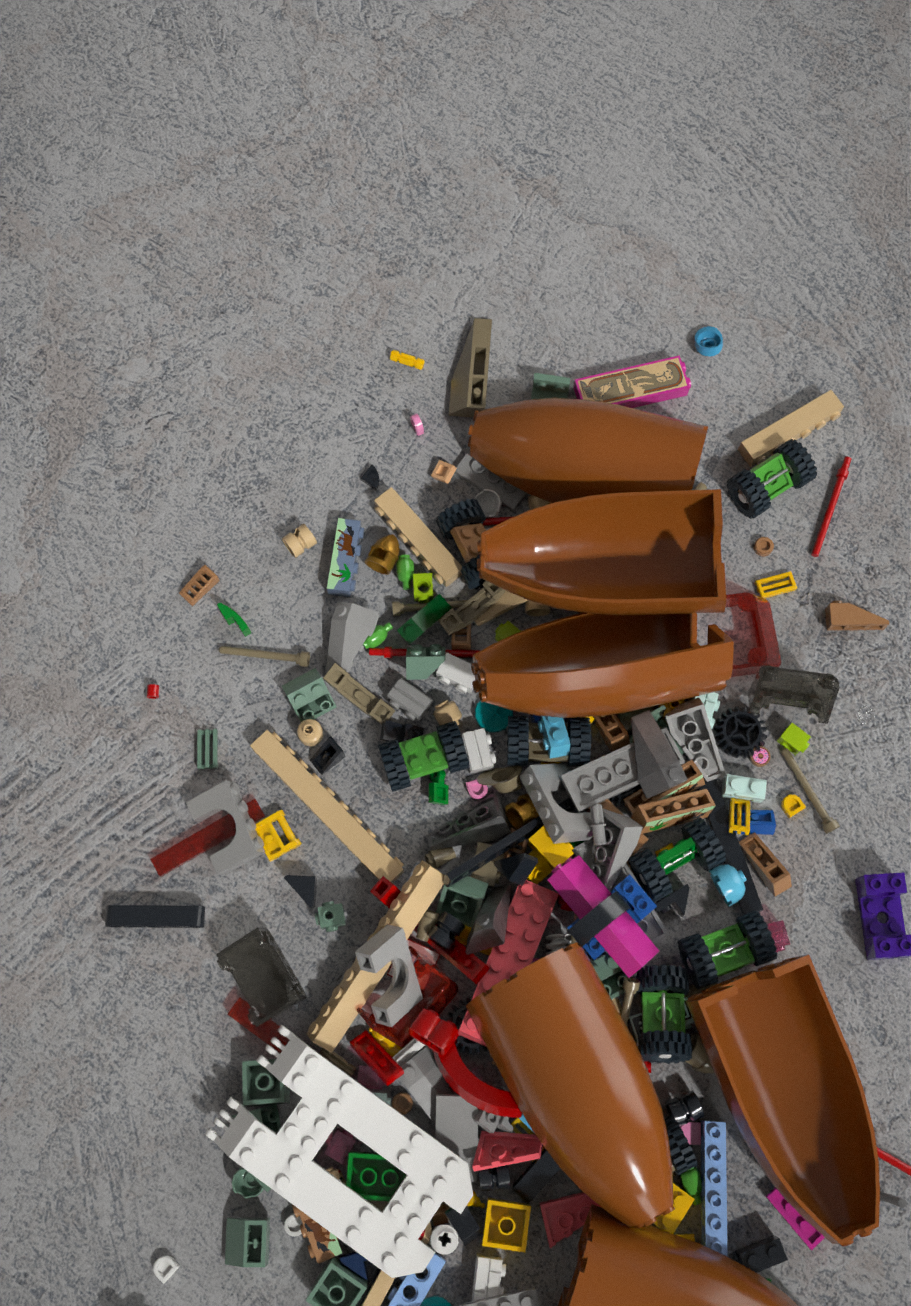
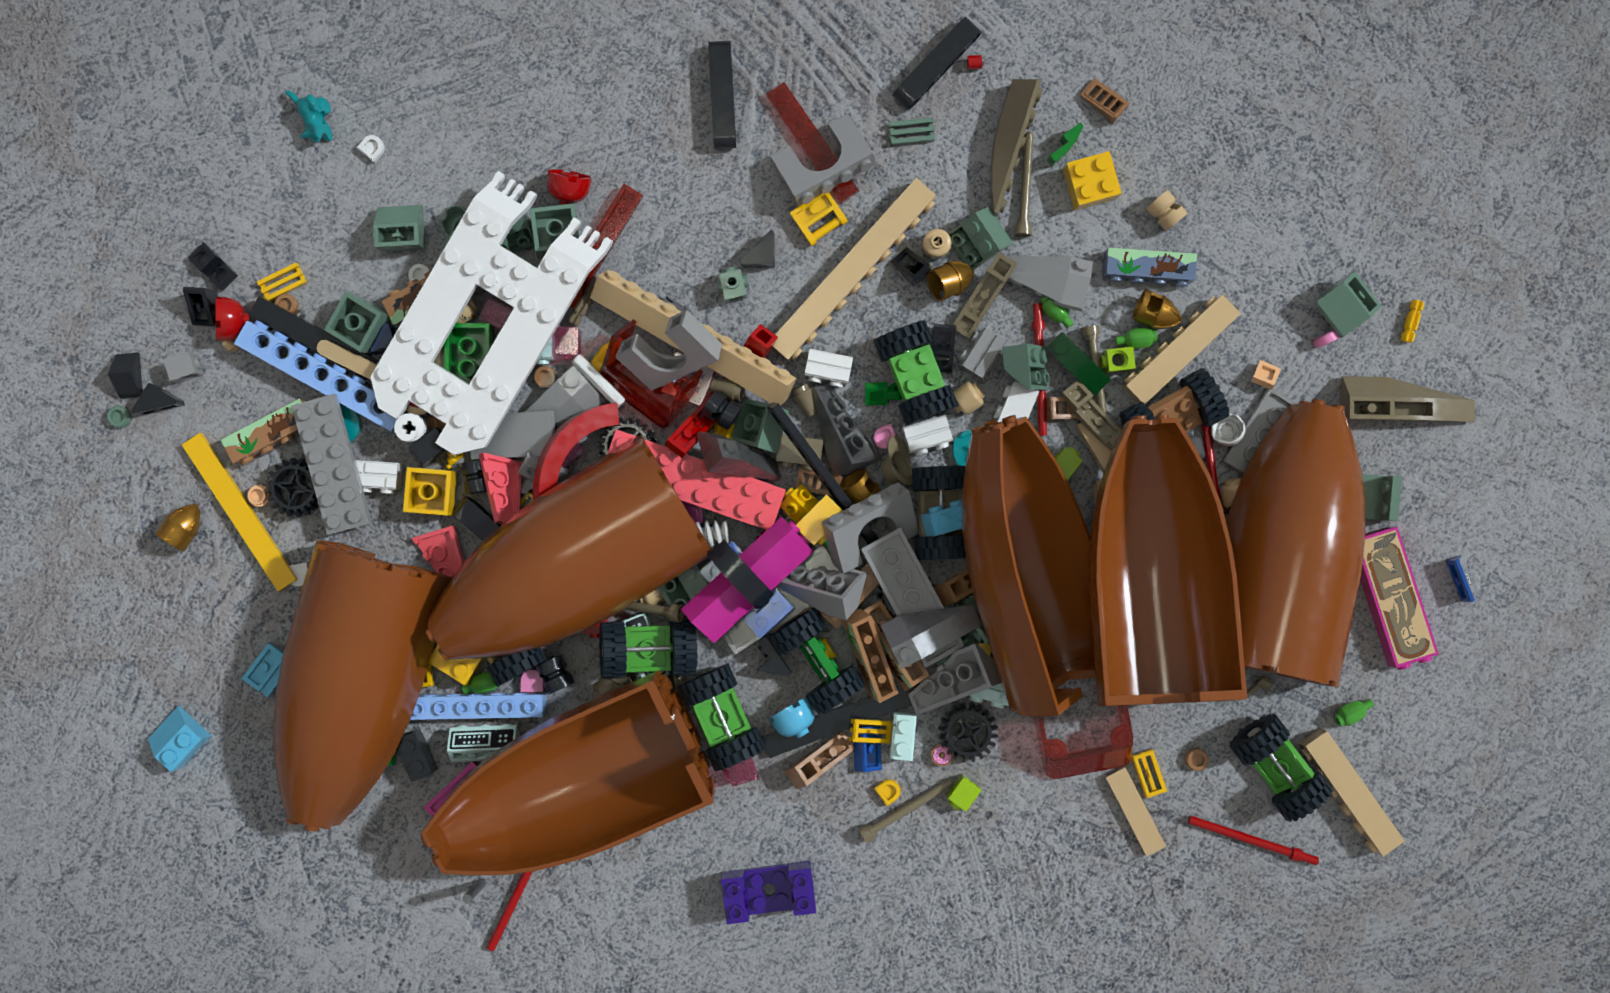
camera: 85 degrees right, 15 degrees up
(150, 723) = (937, 63): none -> black beam
(223, 665) = (1009, 137): none -> dark tan wedge
(224, 1067) = (568, 186): none -> red cylinder
(262, 975) = (665, 217): clear smoke windscreen -> none
(267, 599) = (1092, 180): none -> yellow brick
(340, 720) = (951, 278): none -> pearl gold helmet
(371, 477) = (1254, 290): black tile -> none
(376, 1057) = (586, 345): red tile -> none
(390, 405) = (1347, 304): none -> sand green slope
(412, 834) = (828, 367): none -> white brick
(434, 1032) = (614, 403): red brick -> none
(517, 867) = (793, 483): black slope -> none
(598, 824) = (846, 570): light grey axle -> none
(618, 336) = (1461, 579): none -> blue slope
(708, 341) = (1462, 691): dark azure hat -> none
(725, 423) = (1352, 712): none -> bright green plant
(748, 1186) = (478, 742): none -> light aqua brick
(795, 689) = (1020, 791): clear smoke windscreen -> none
(808, 598) = (1135, 811): none -> tan tile
(850, 617) = (1114, 858): medium nougat slope -> none

